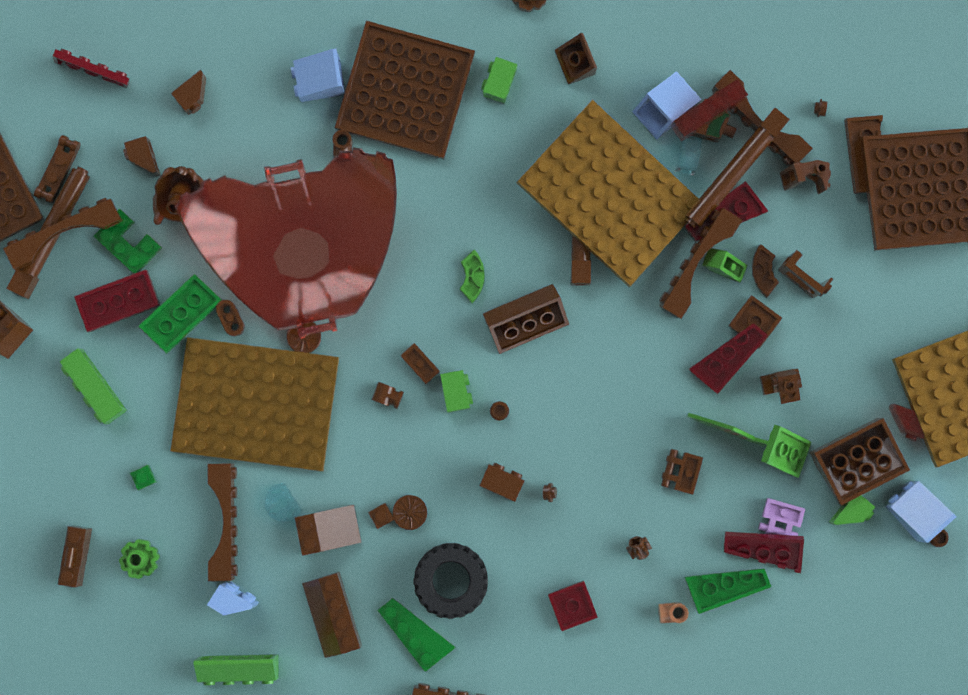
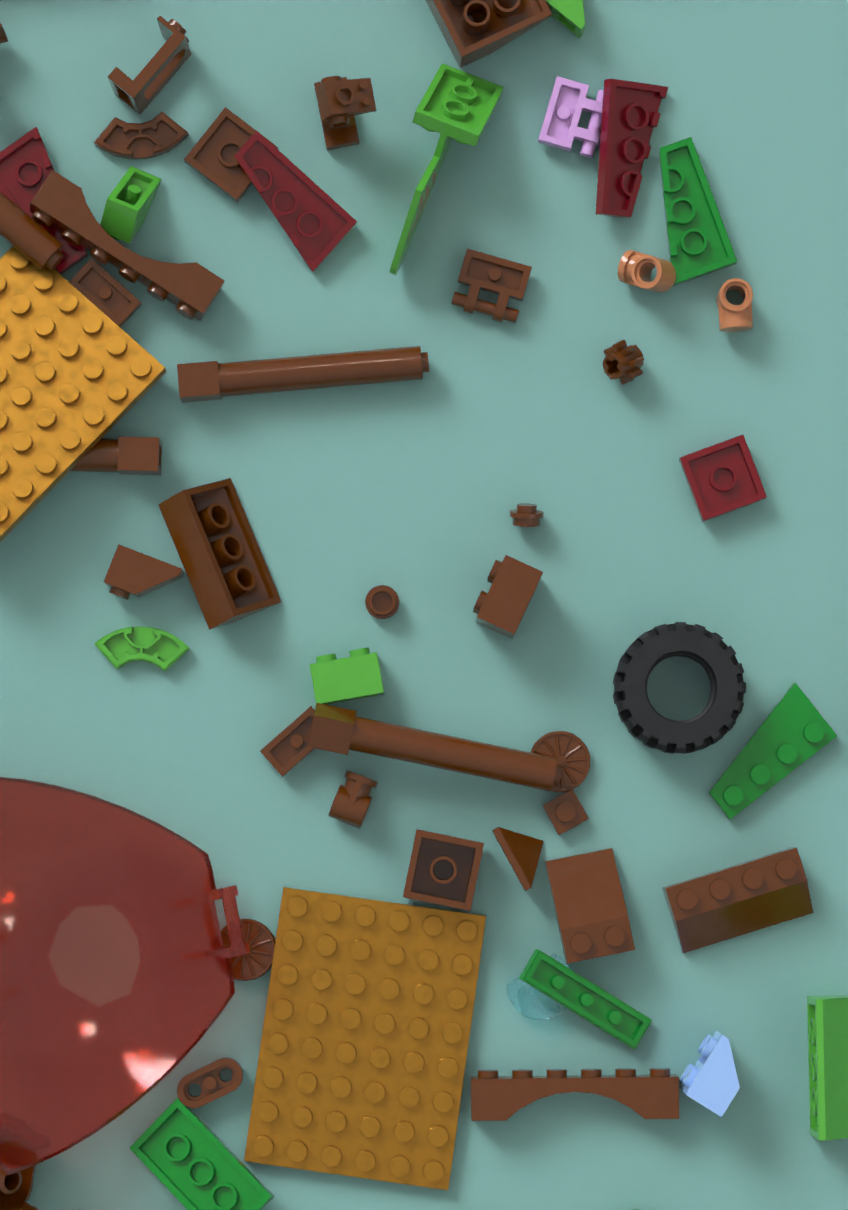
camera: 90 degrees left, 0 degrees up
(275, 527) = (585, 999): none -> green tile
(347, 446) = (443, 870): none -> reddish brown brick
(357, 491) = (521, 852): none -> reddish brown slope
(424, 388) = (341, 730): none -> reddish brown brick
(513, 273) = (138, 573): none -> reddish brown slope
(629, 363) = (216, 380): none -> reddish brown brick
(673, 252) = (105, 292): none -> reddish brown plate
(692, 555) = (637, 267): none -> nougat piece

